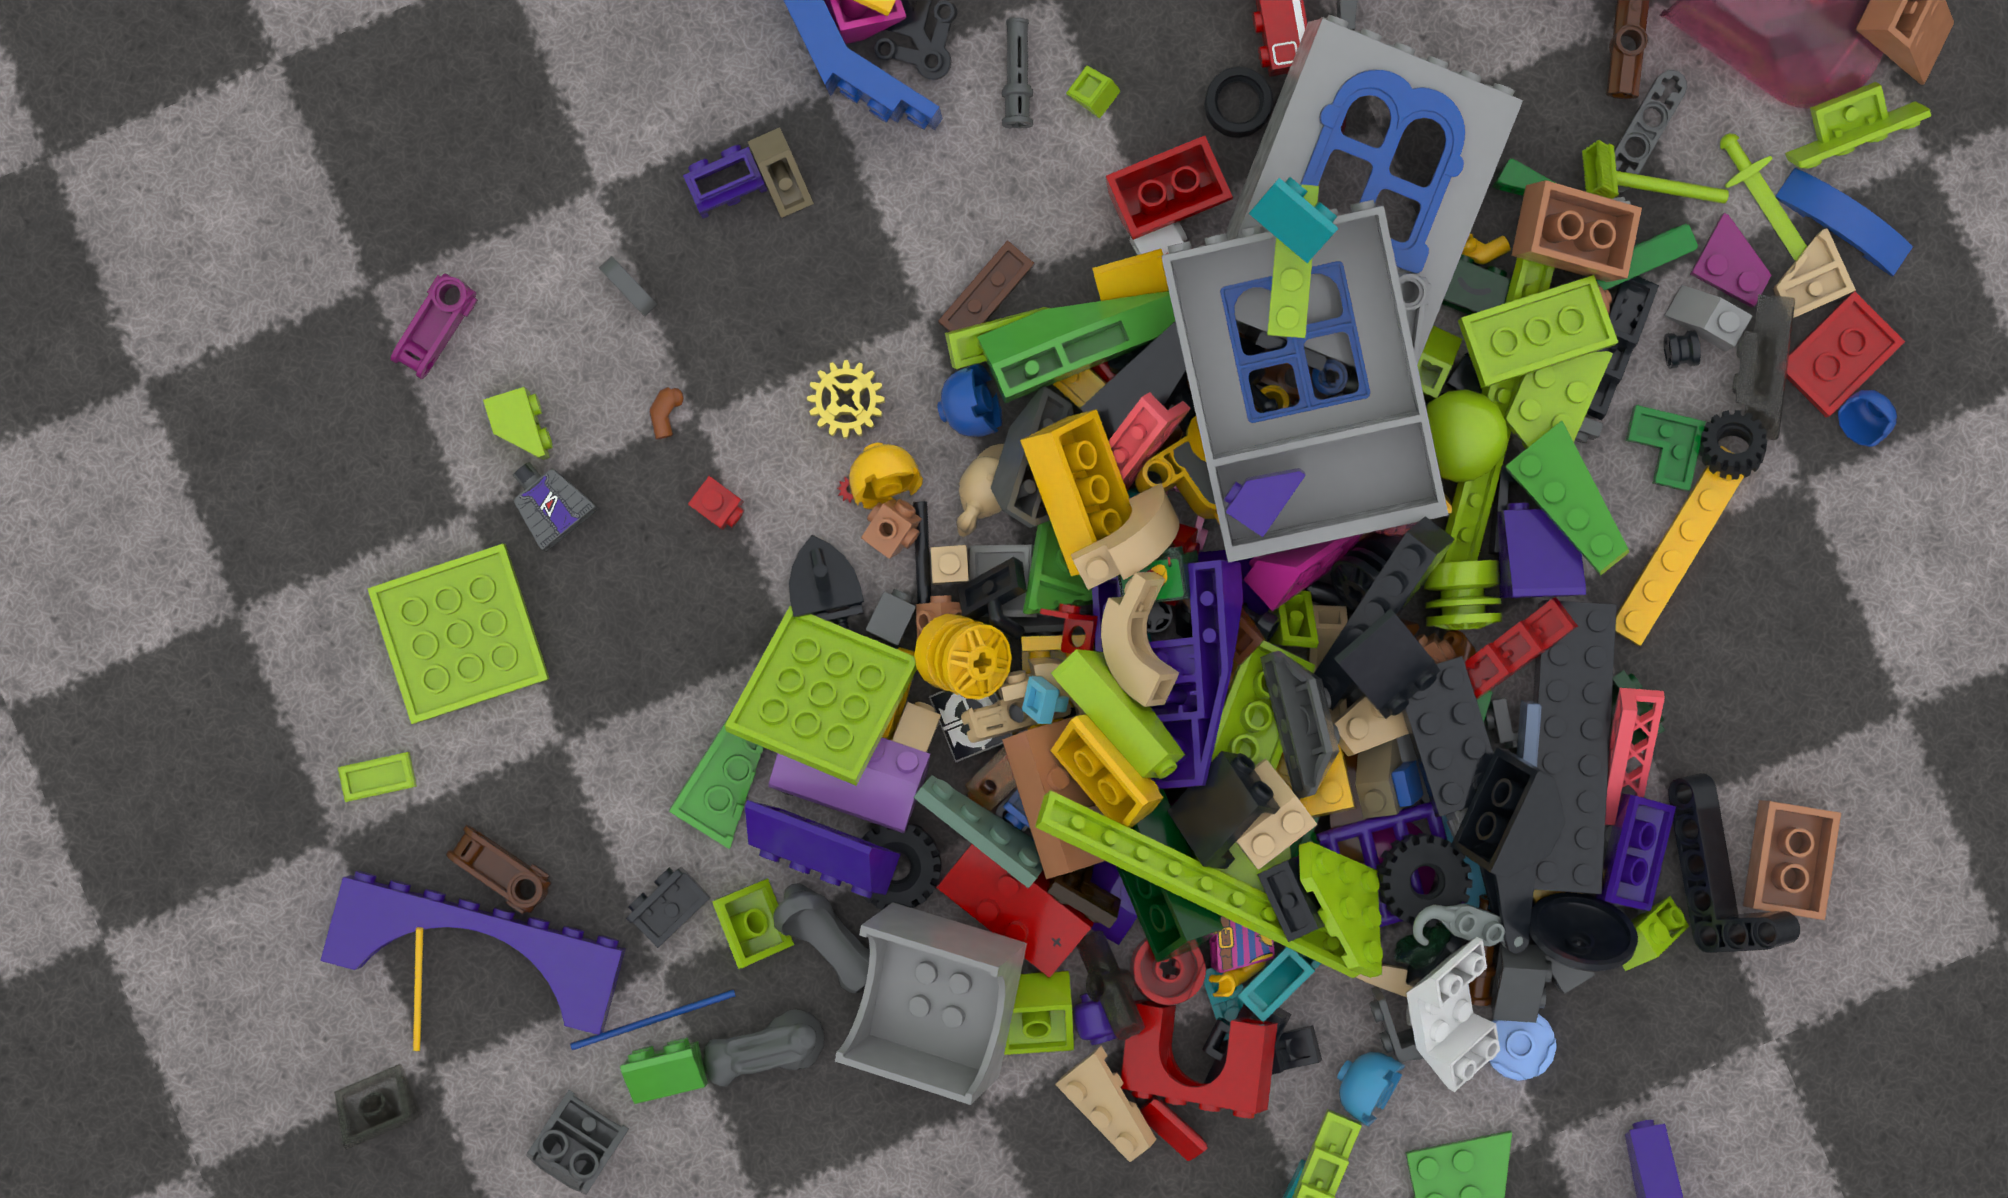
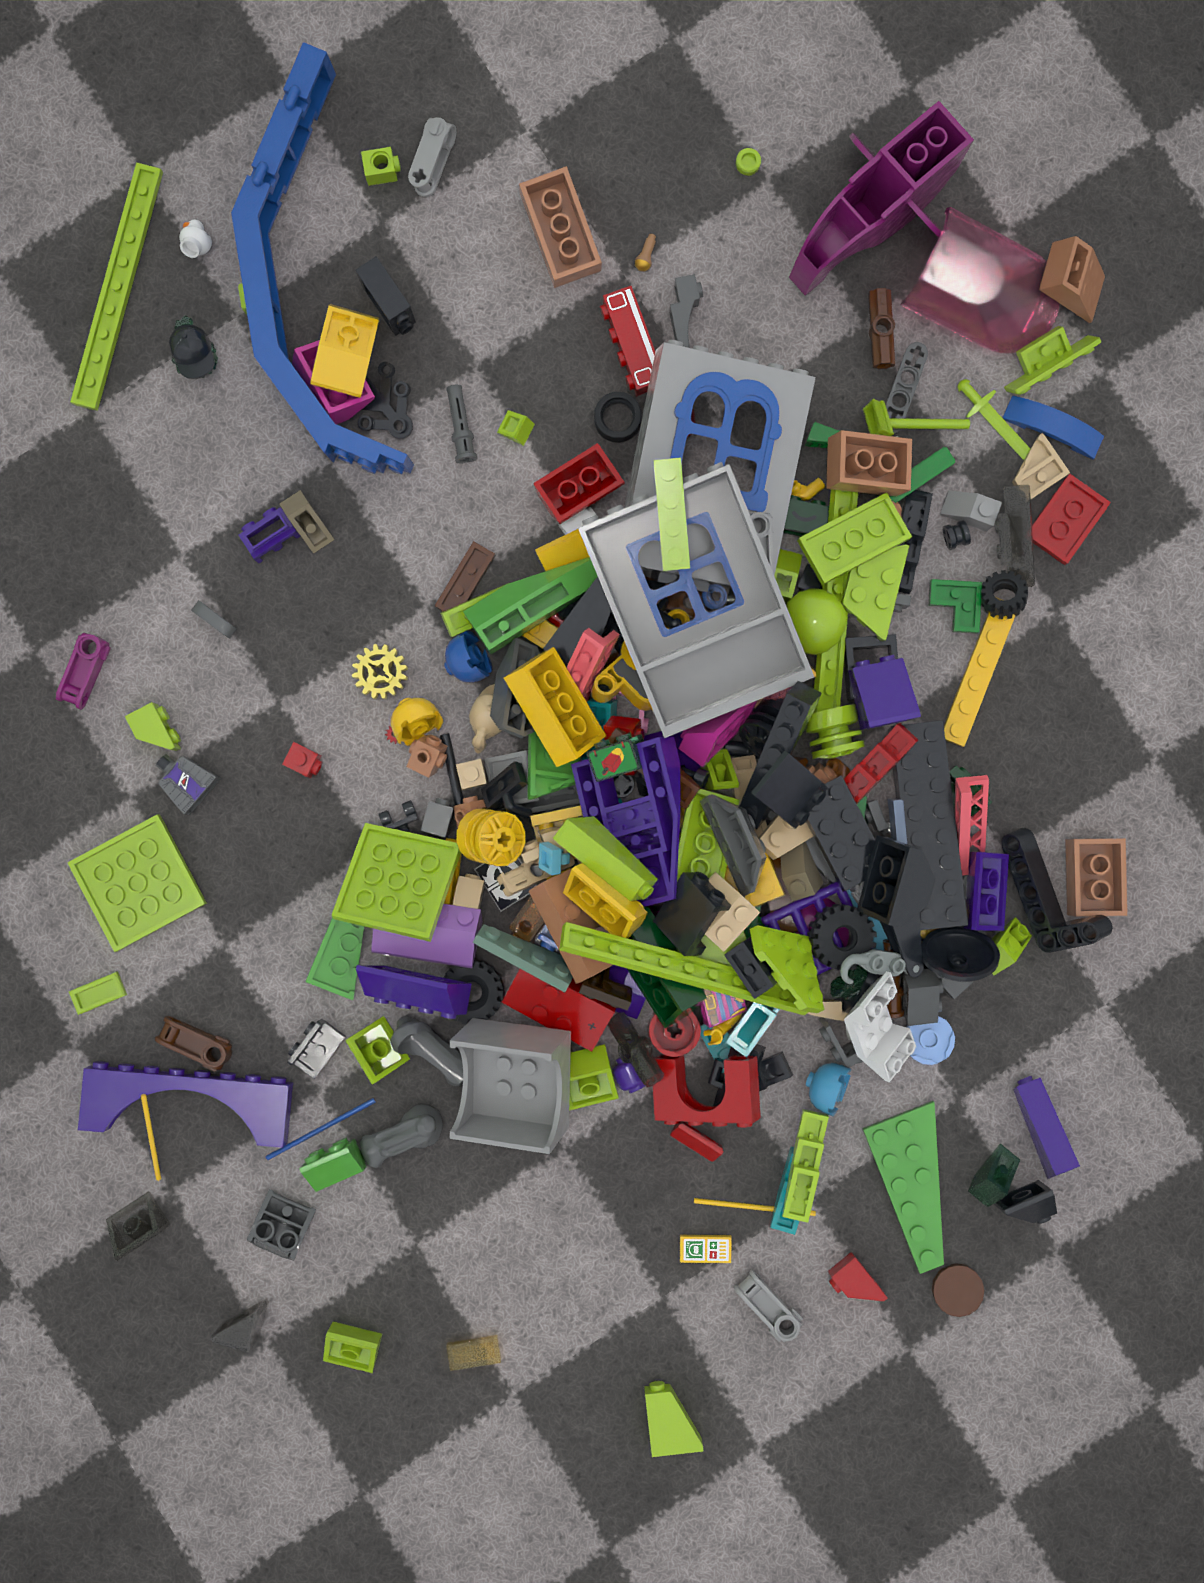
camera: 10 degrees left, 0 degrees up
(661, 408) = (252, 701): dark orange arm -> none
(822, 579) = (385, 800): black shield -> none
(1073, 619) = (565, 797): red bracket -> none
(1102, 1101) = (643, 1130): tan wing -> none
(1127, 644) = (603, 808): tan arch -> none
(1133, 545) = (596, 737): tan arch -> none
(1262, 498) = (680, 688): dark purple slope -> none
(1294, 219) = (666, 482): teal slope -> none
(1407, 783) = (818, 871): blue tile -> none
(1565, 491) = (893, 646): bright green wing -> none
(1731, 264) = (980, 470): magenta wing -> none
(1867, 417) = (1094, 559): blue hair -> none

